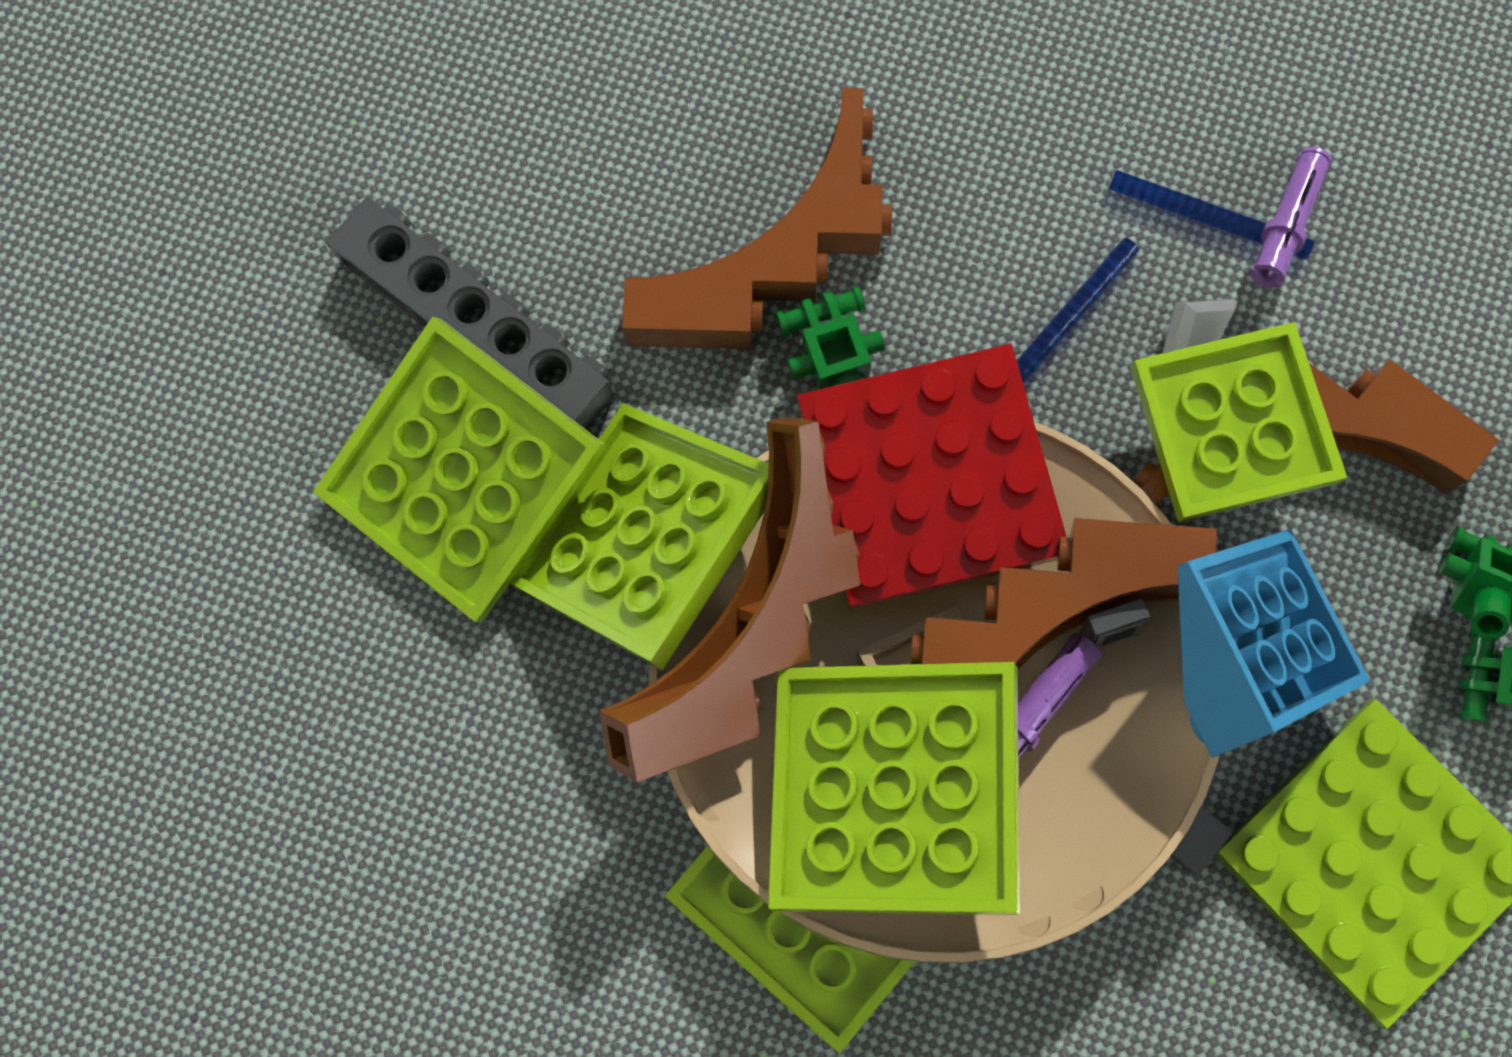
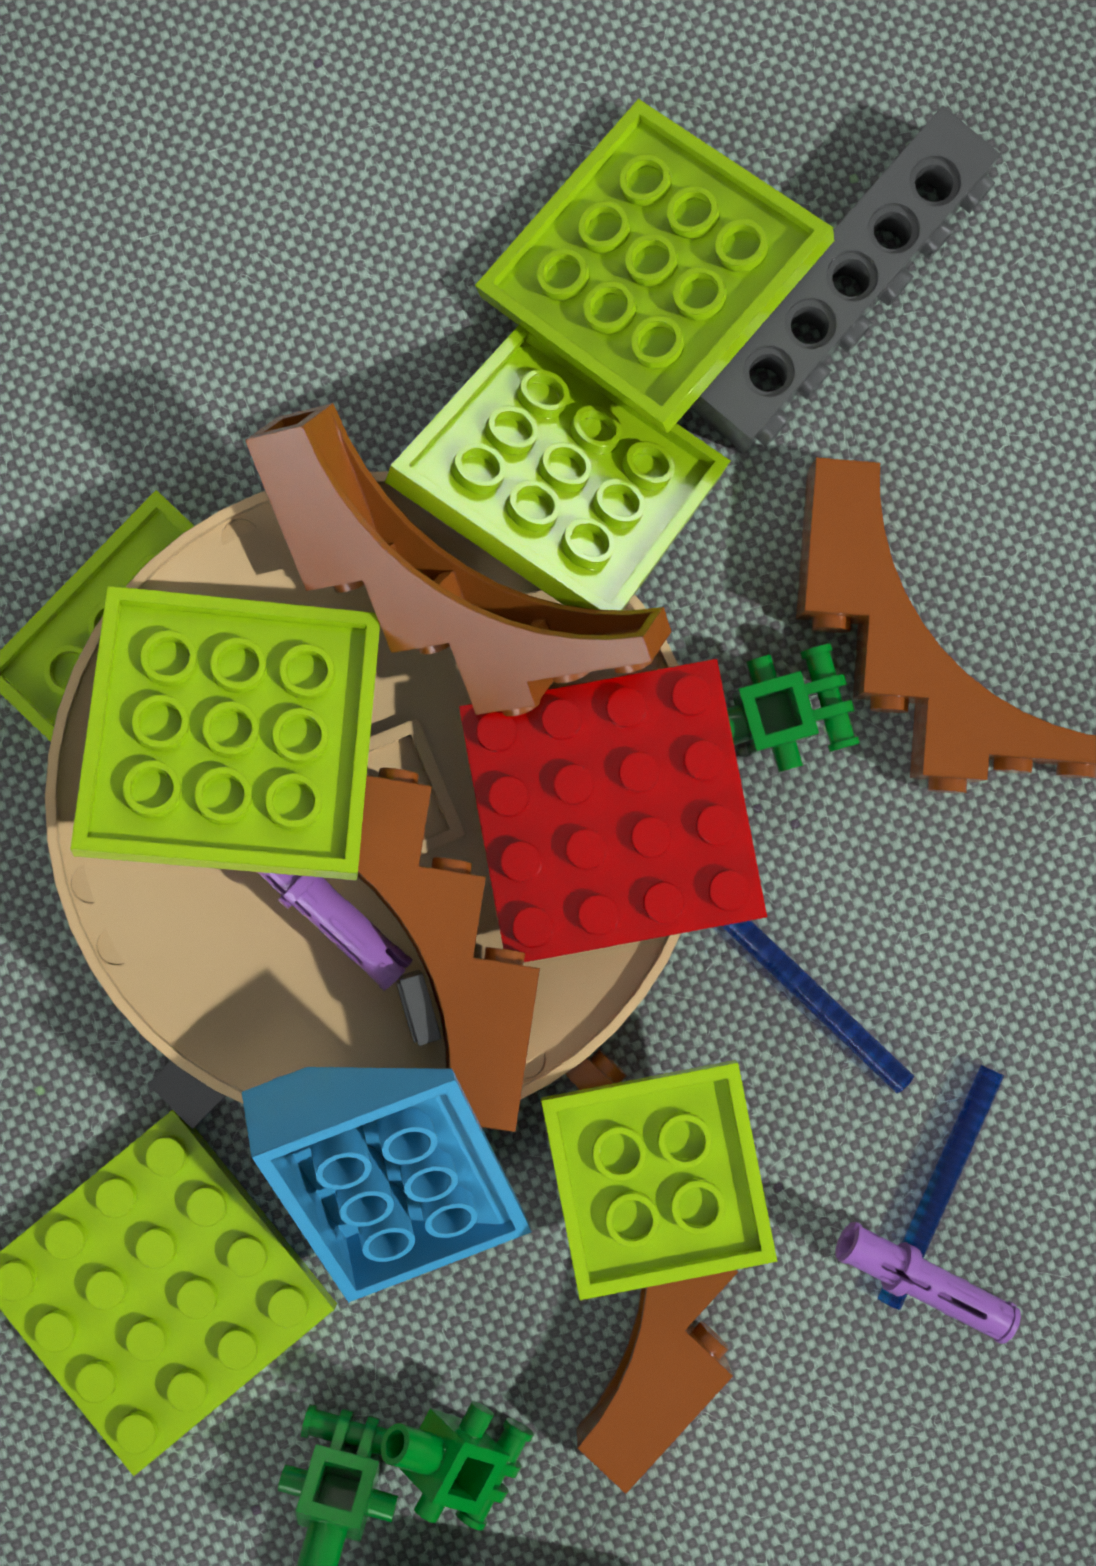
camera: 85 degrees right, 10 degrees up
(1197, 323) = (792, 1152): light grey piece -> none

